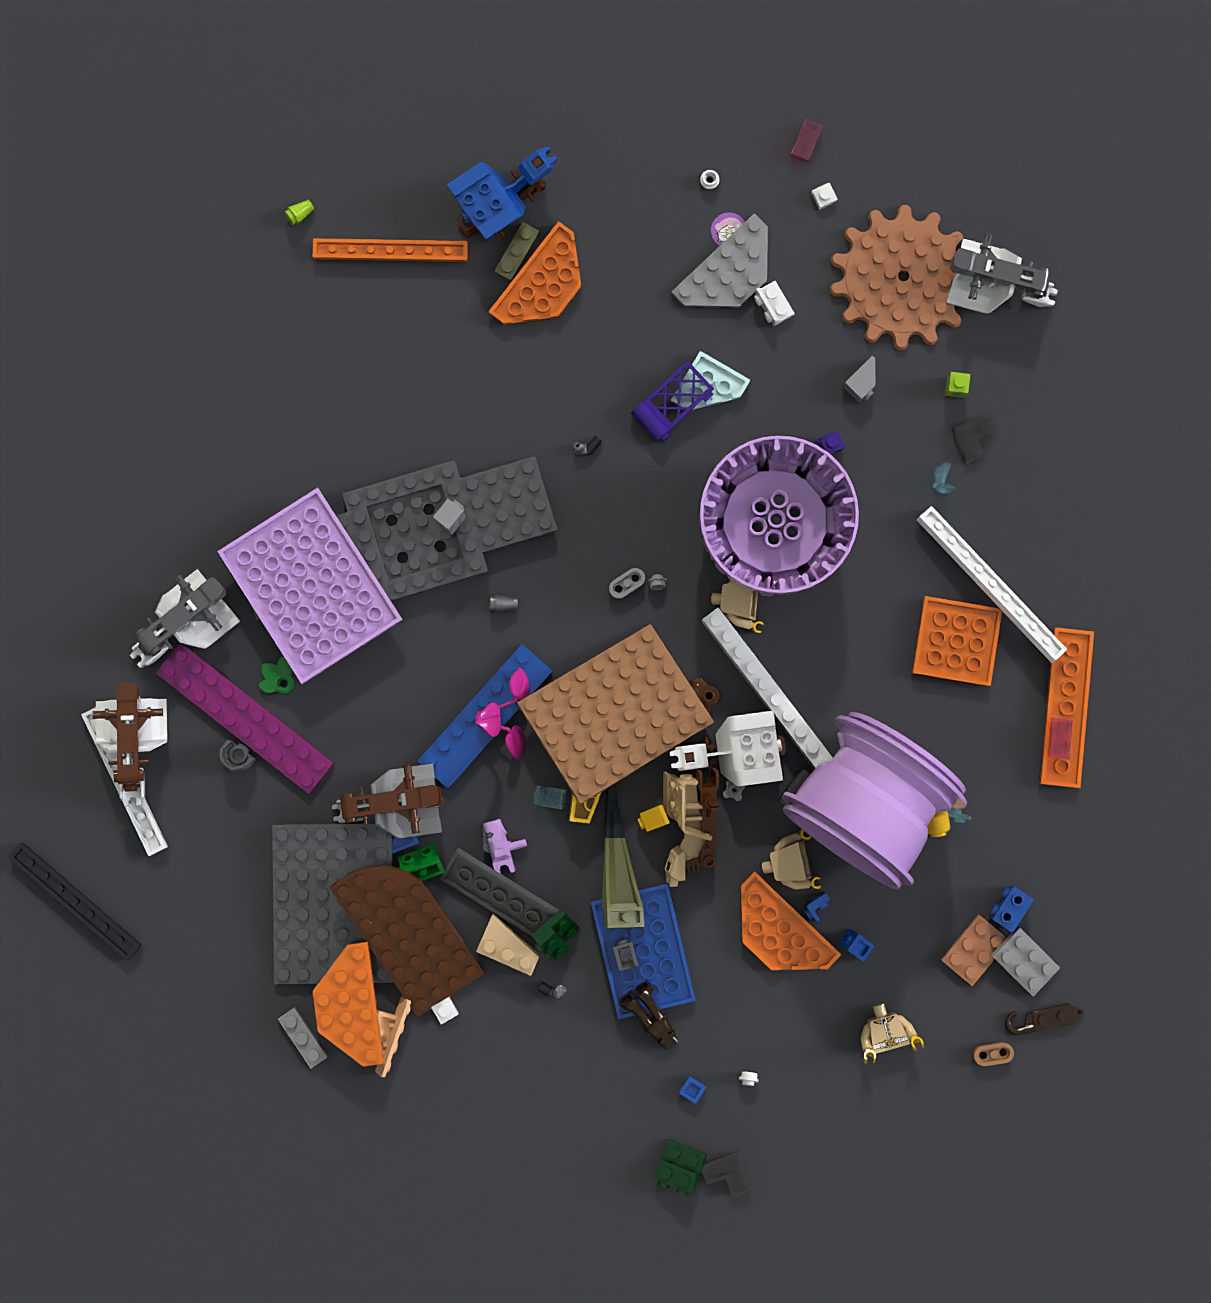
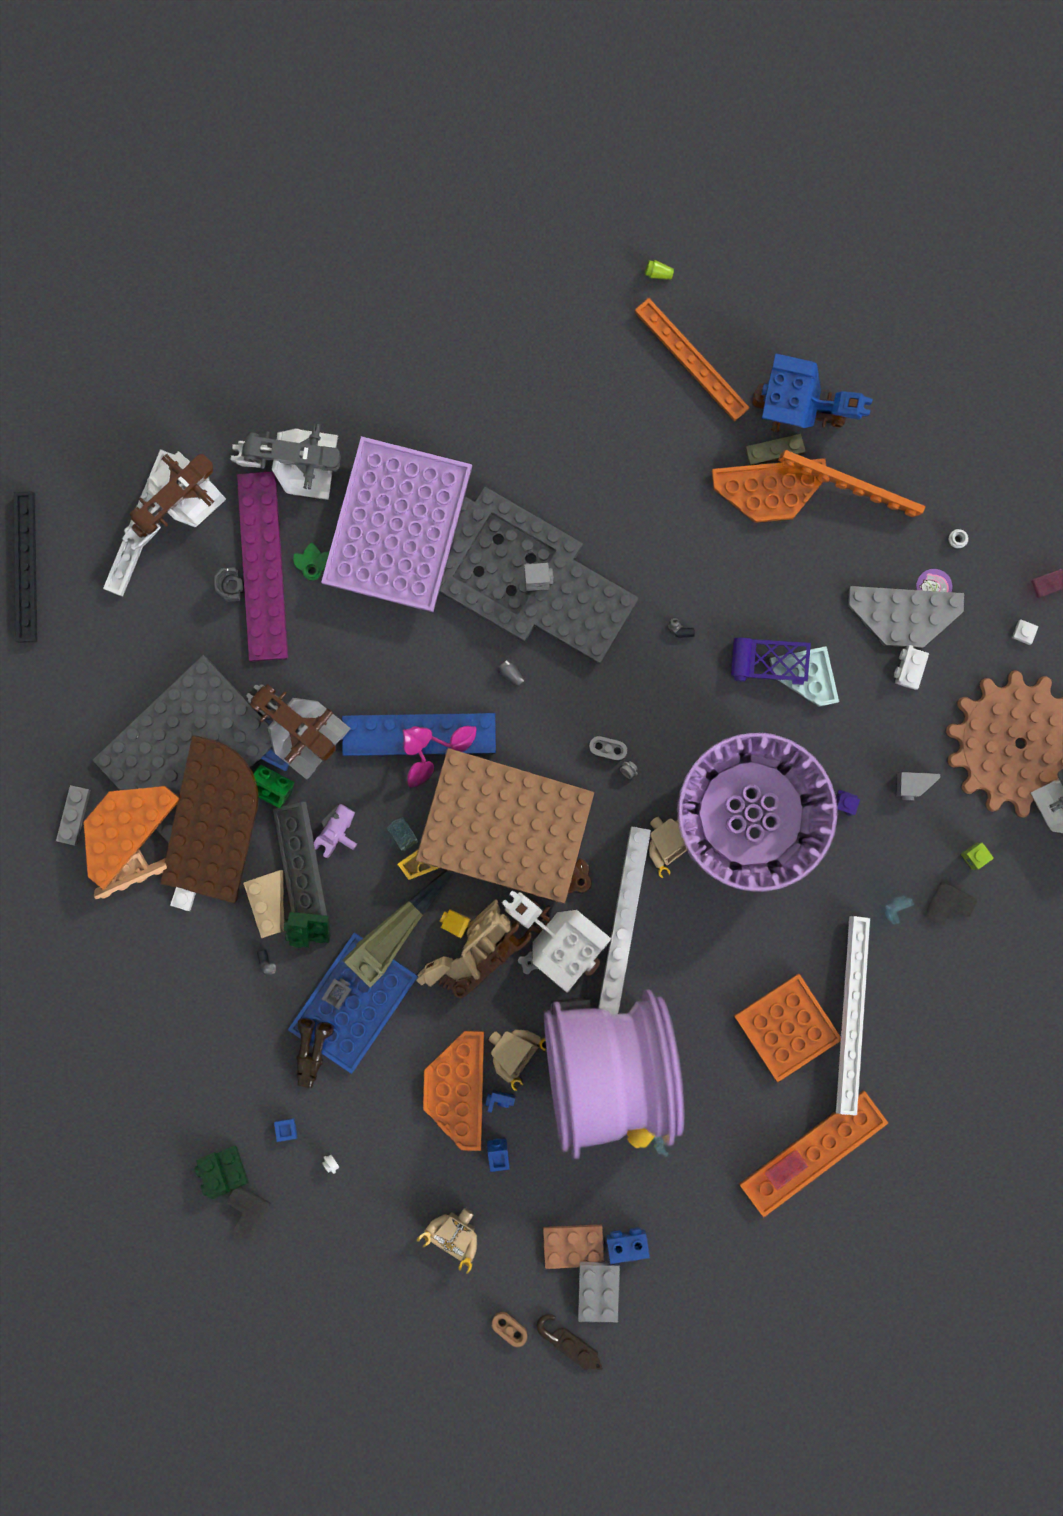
camera: 50 degrees right, 0 degrees up
(590, 222) = (845, 481): none -> orange plate

